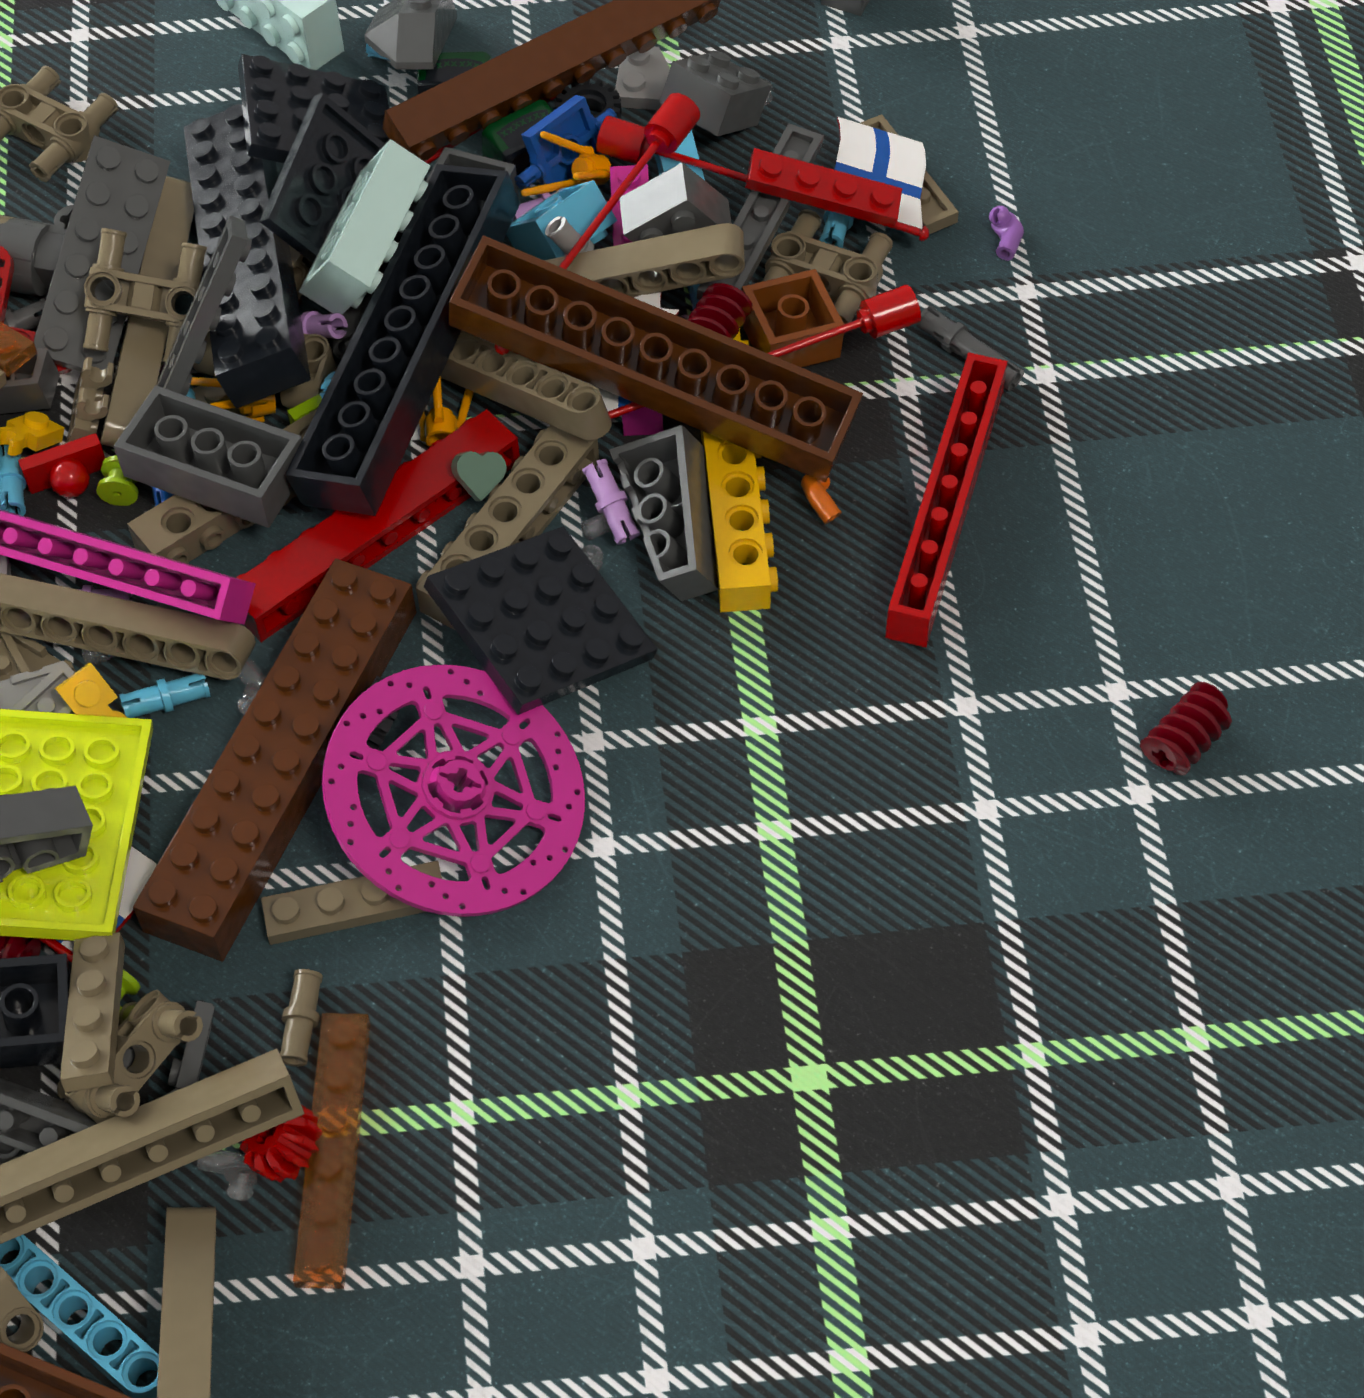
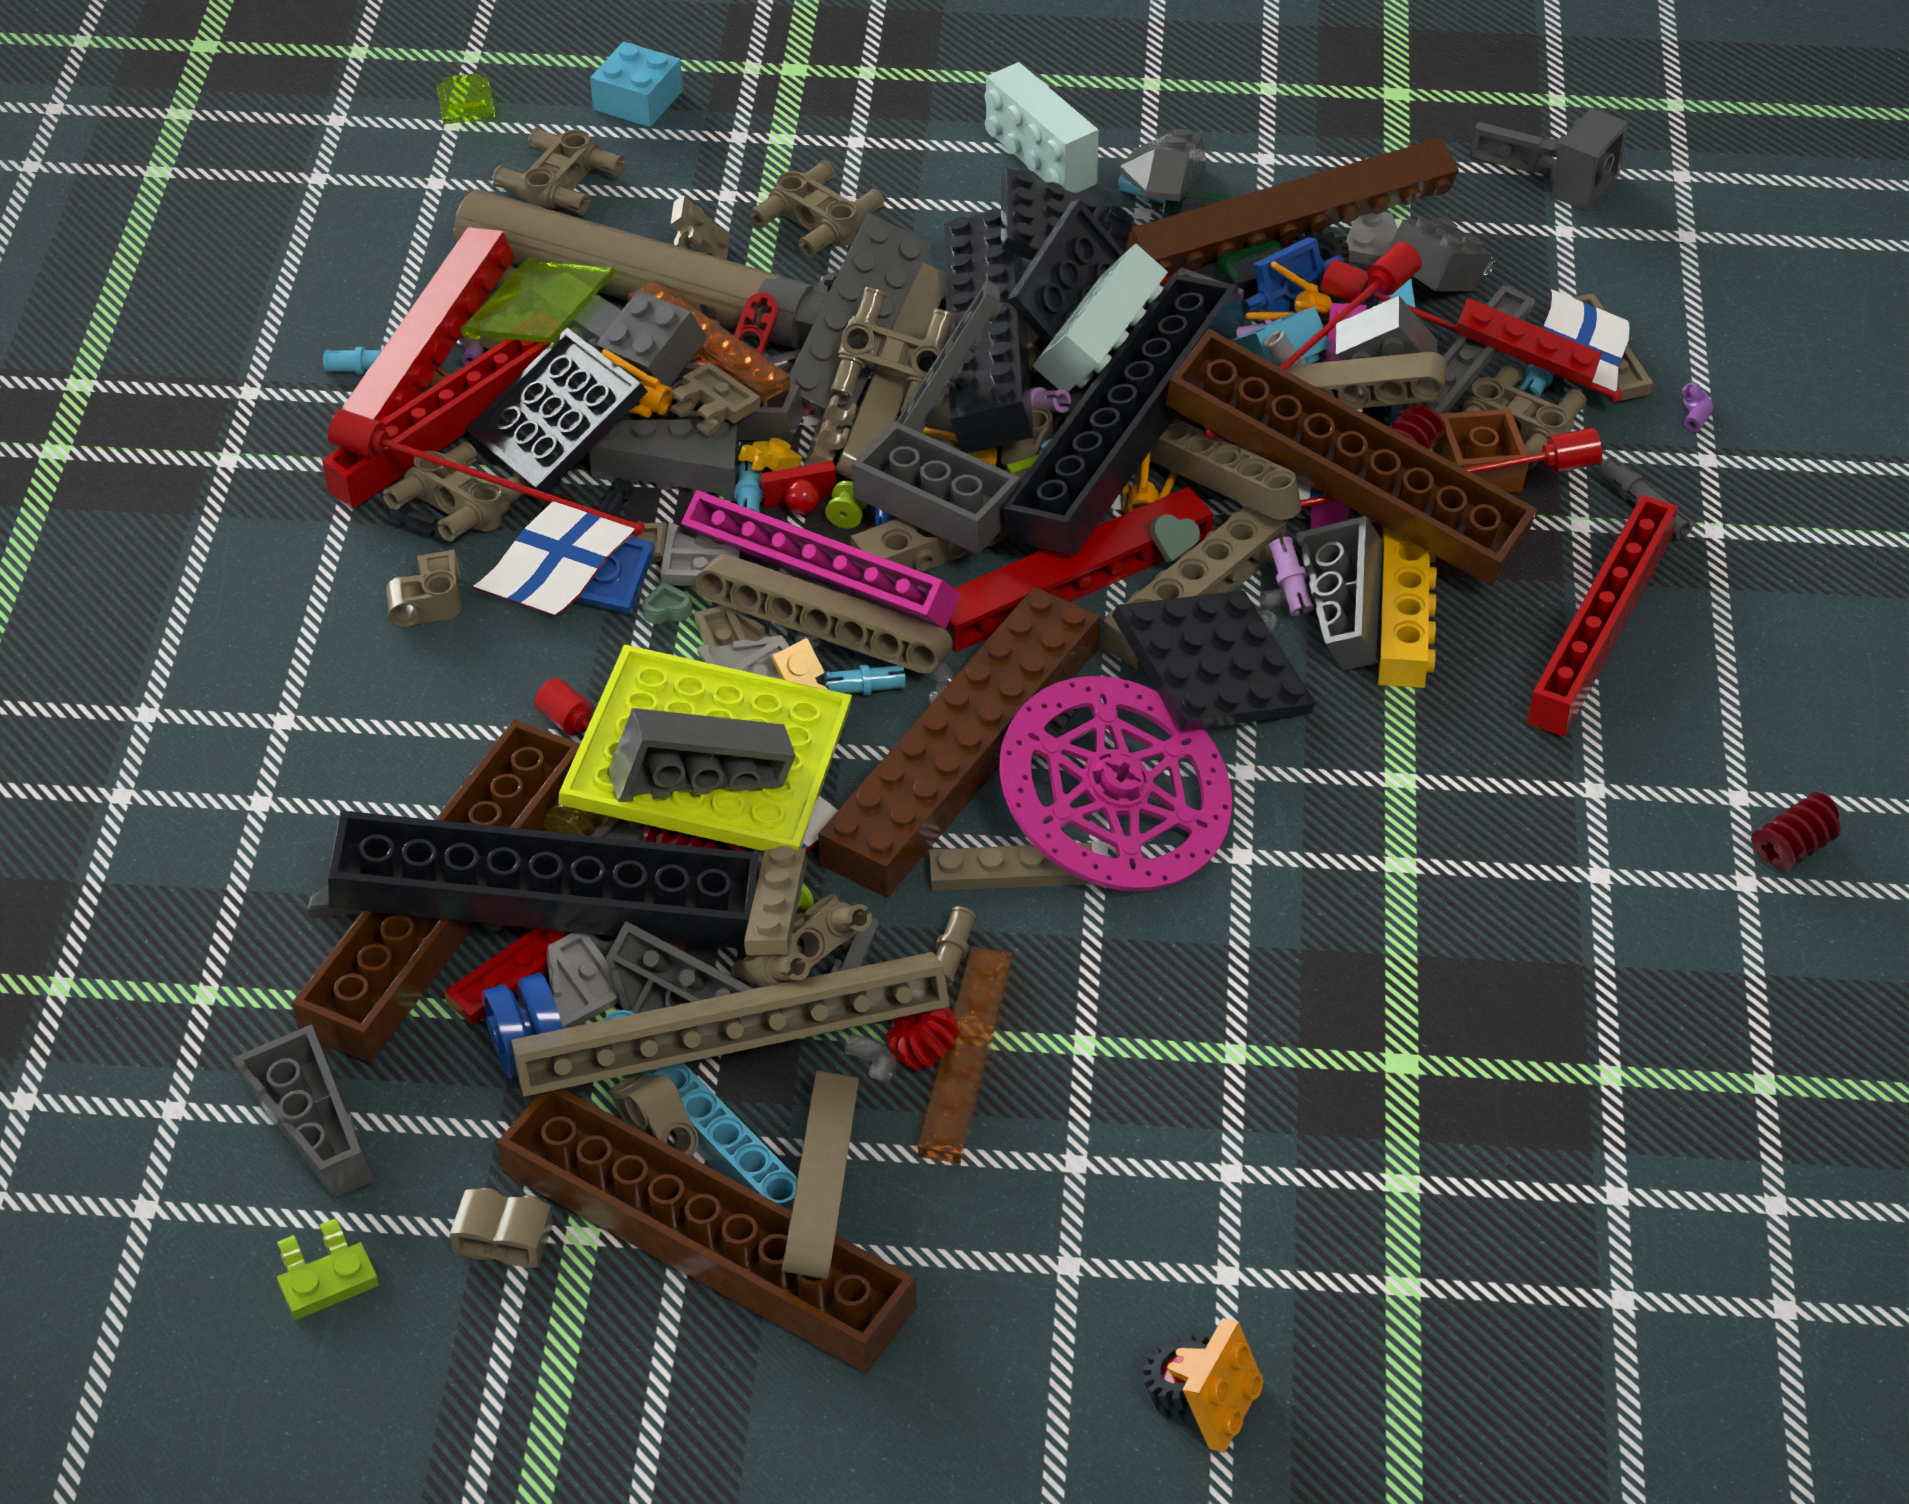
camera: 10 degrees right, 10 degrees down
(820, 499) = (1482, 597): orange arm -> none

